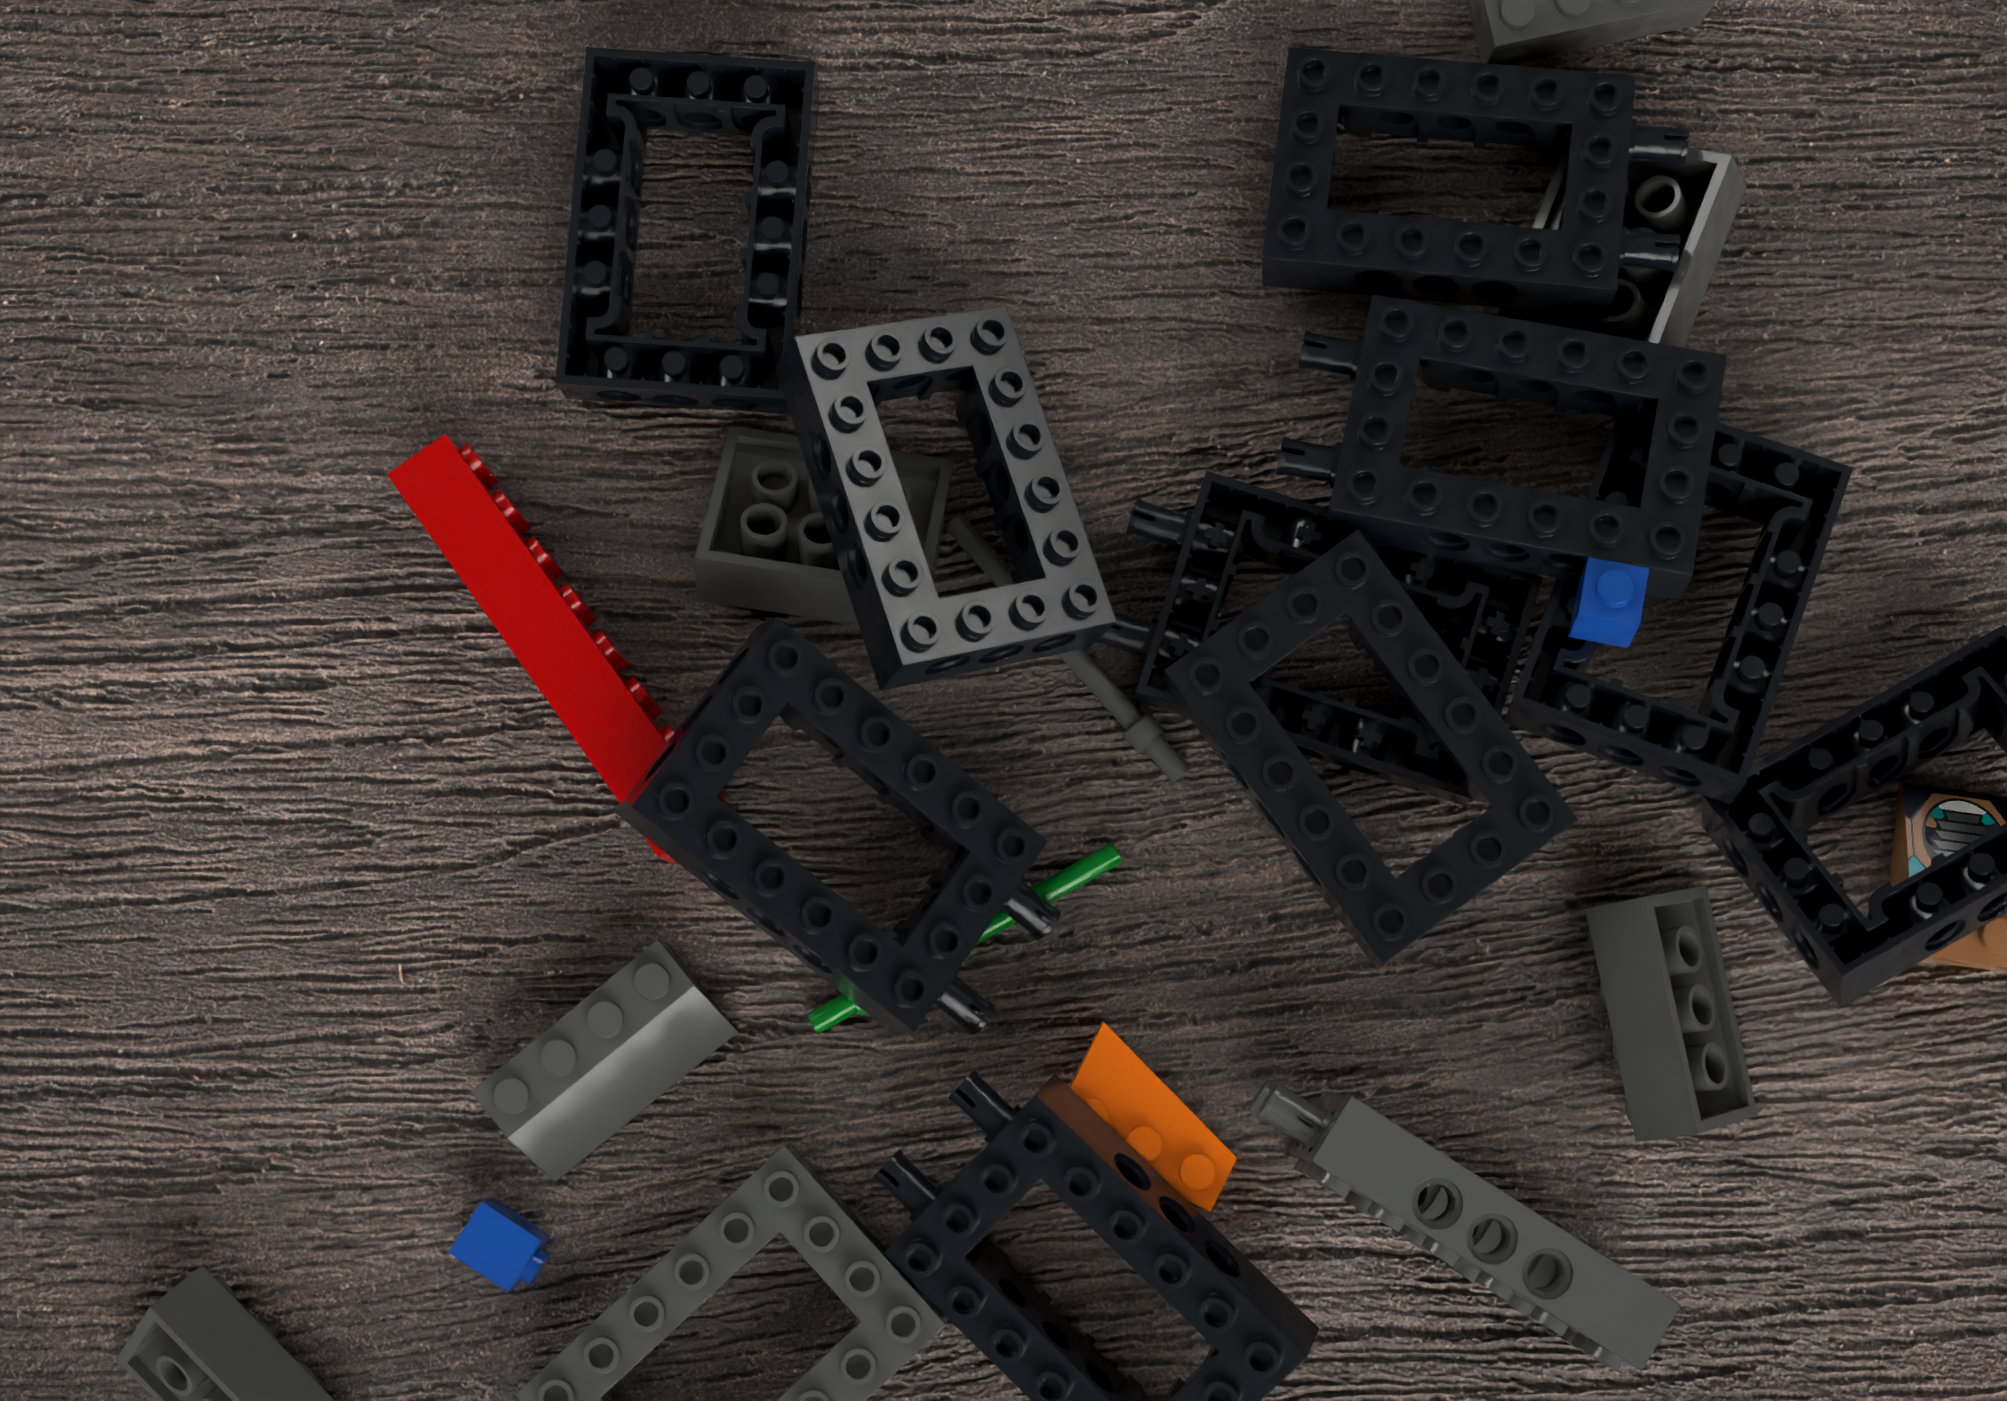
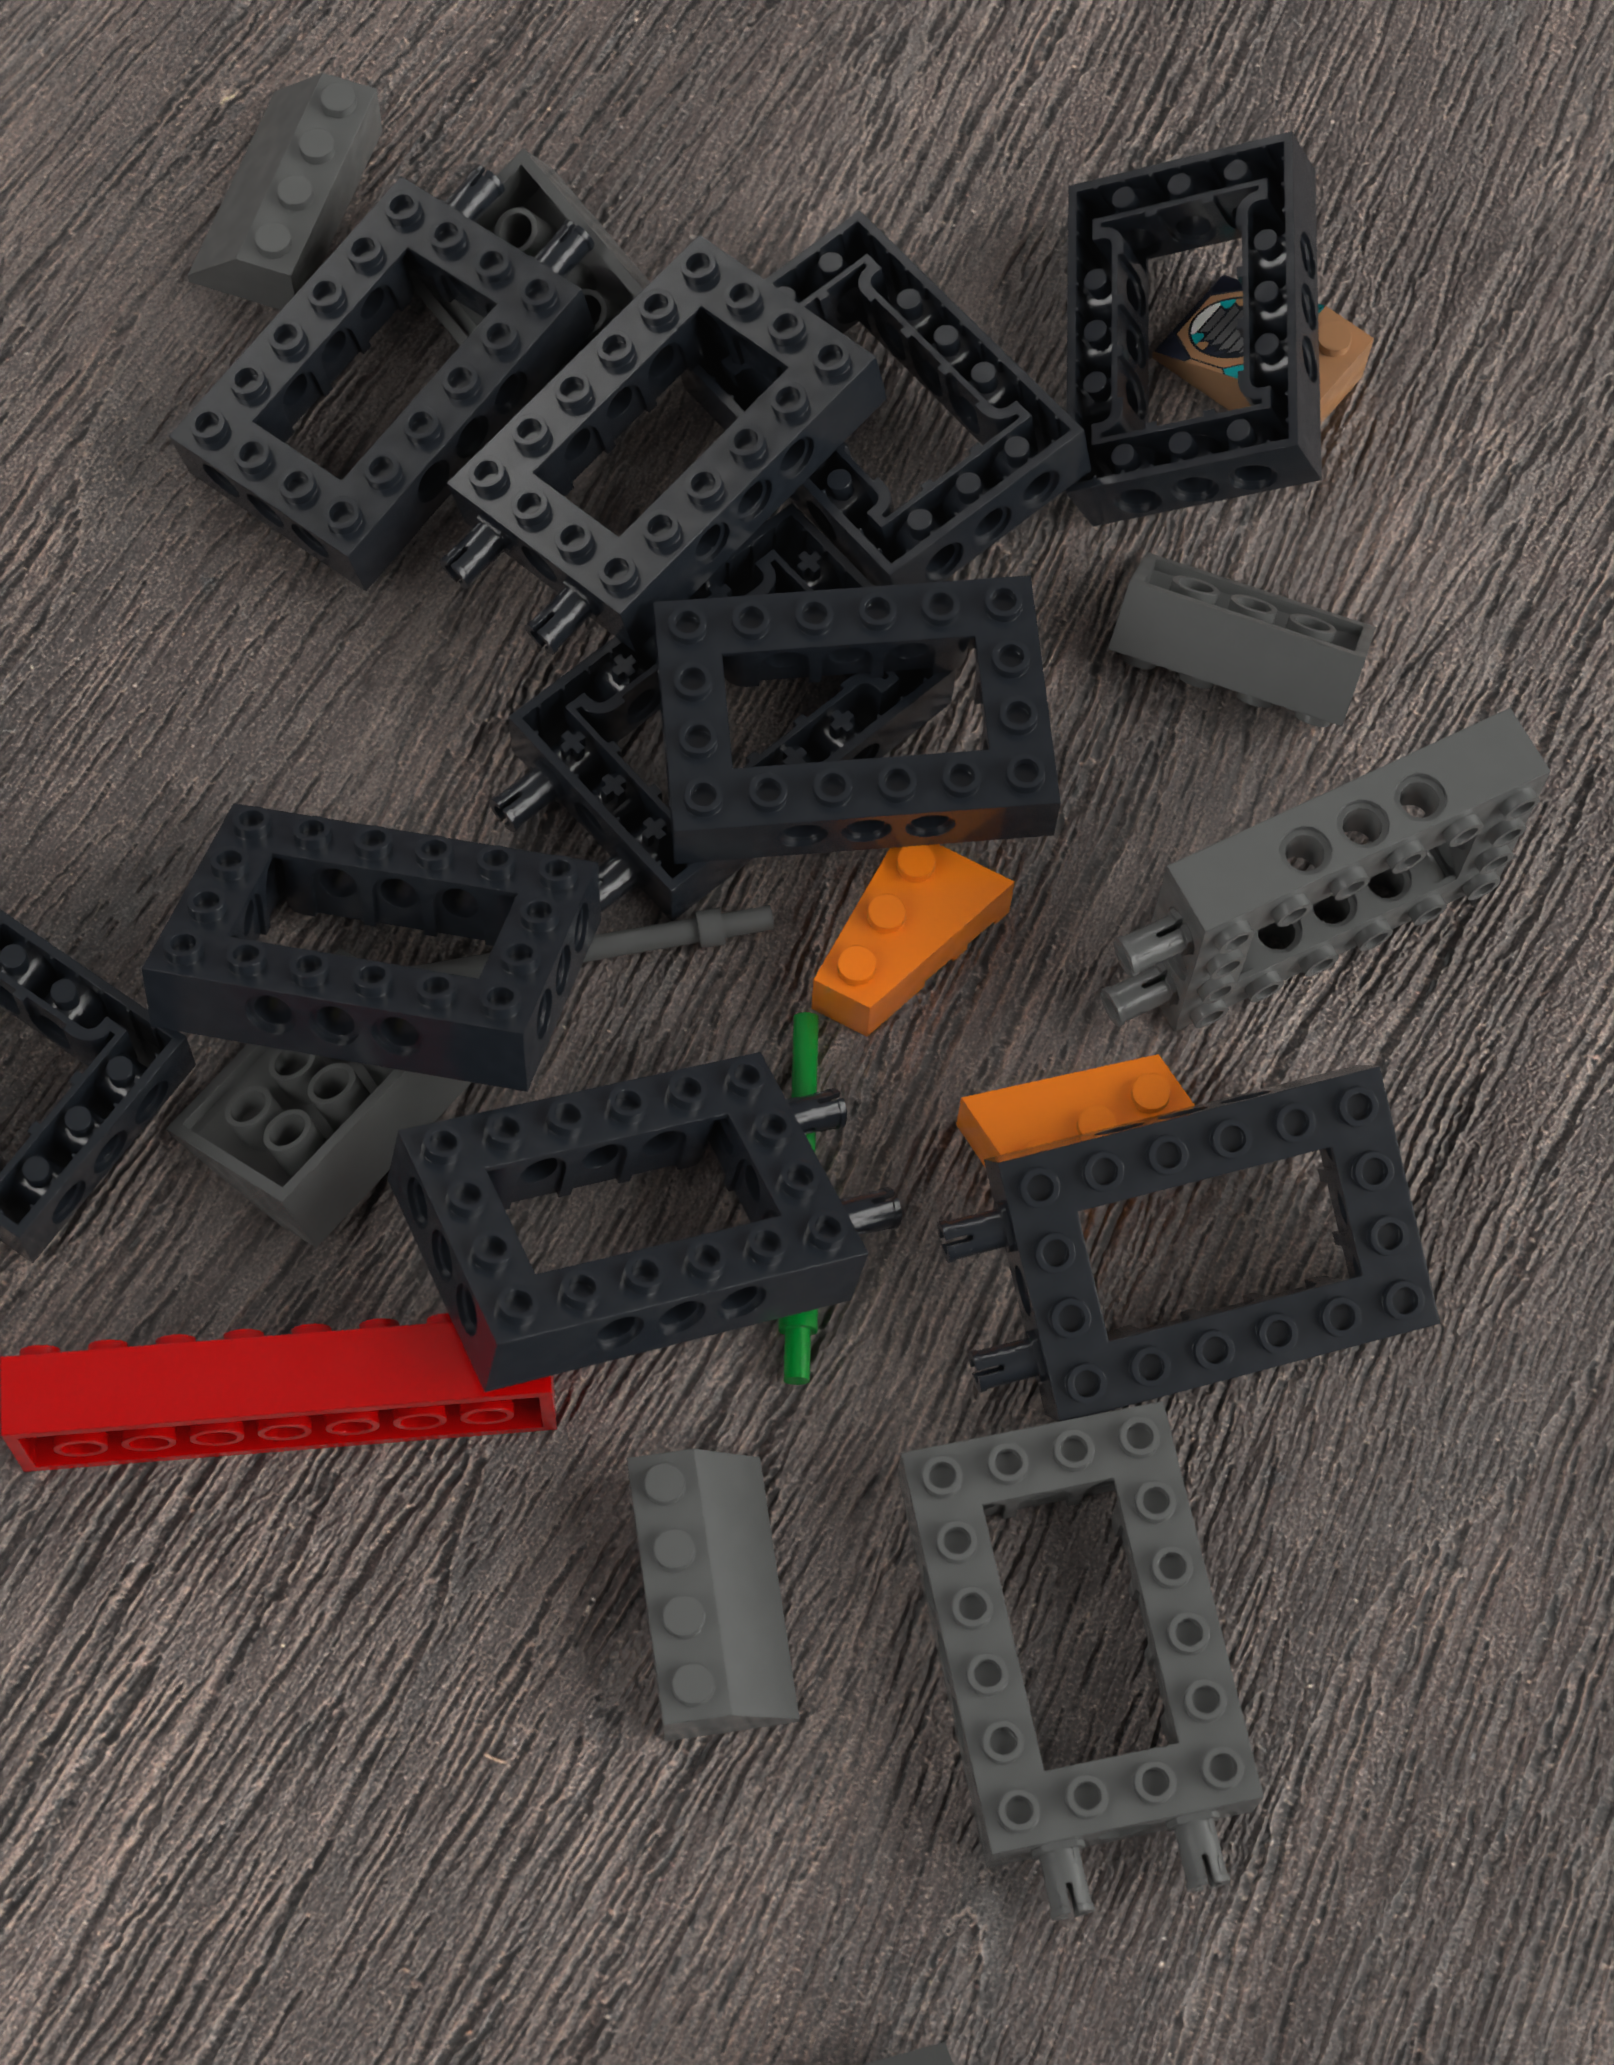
camera: 65 degrees left, 15 degrees down
(502, 1245) = (833, 1799): blue brick -> none
(1229, 888) = (903, 930): none -> orange wedge
(1608, 602) = (854, 443): blue brick -> none

